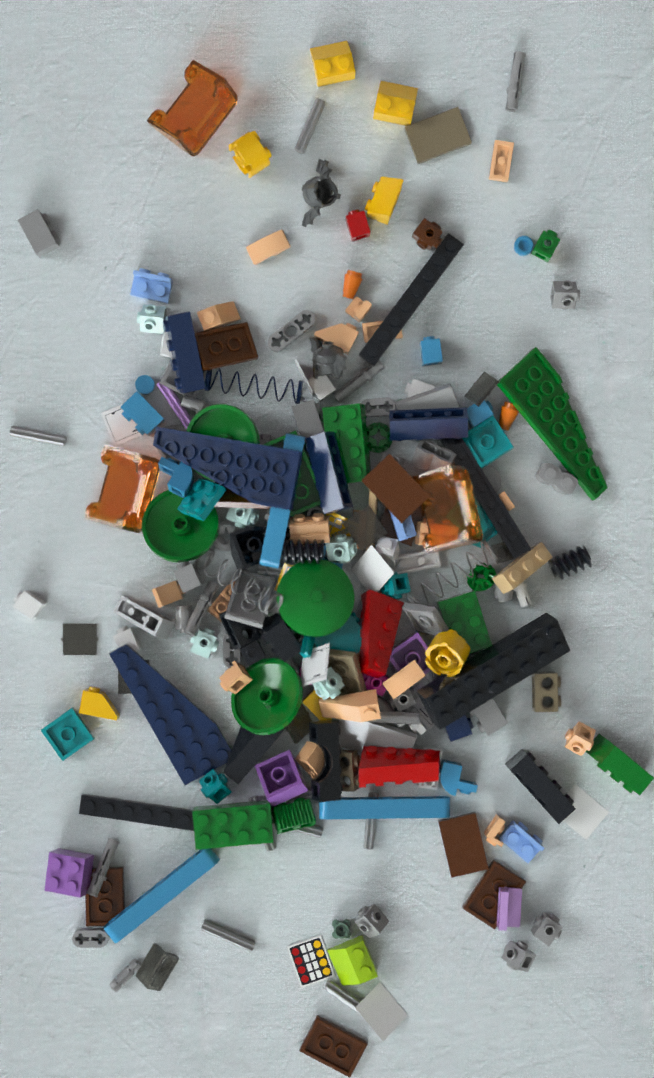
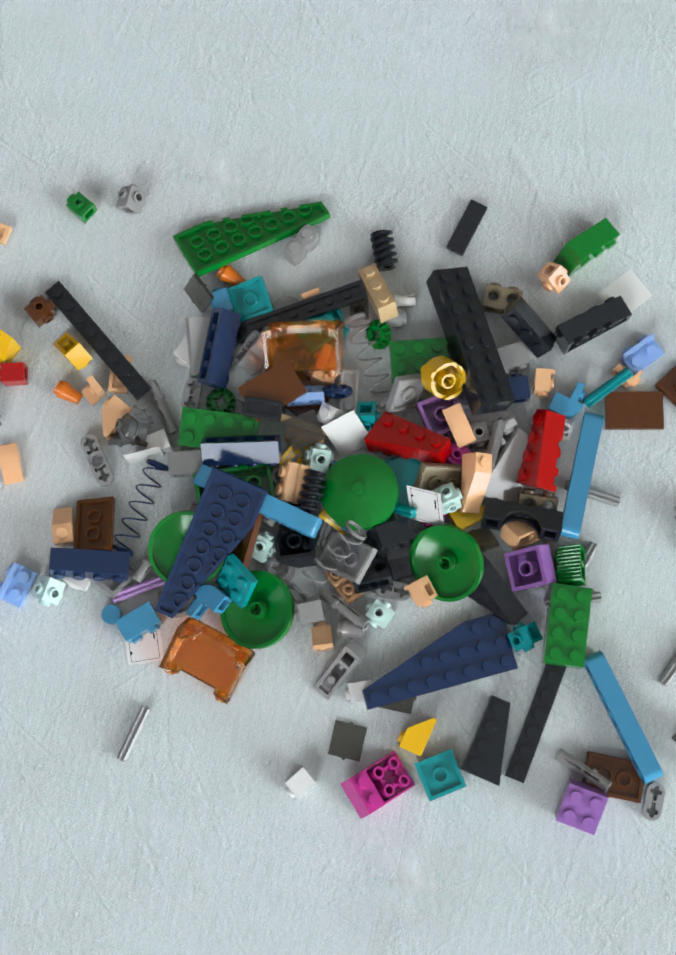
camera: 75 degrees left, 10 degrees down
(44, 677) = (377, 784): none -> dark pink slope
(103, 772) = (487, 746): none -> black wedge
(373, 484) = (262, 409): none -> black tile
(394, 277) = (73, 351): none -> yellow slope
(412, 551) = (337, 391): none -> dark blue gear
(430, 351) = (151, 333): dark azure brick -> none
(470, 750) = (542, 382): none -> light nougat brick
(479, 815) = (608, 387): none -> teal axle
(521, 725) = (529, 327): none -> black brick
(523, 245) = (75, 227): dark azure tile -> none
(614, 639) = (466, 227): none -> black tile

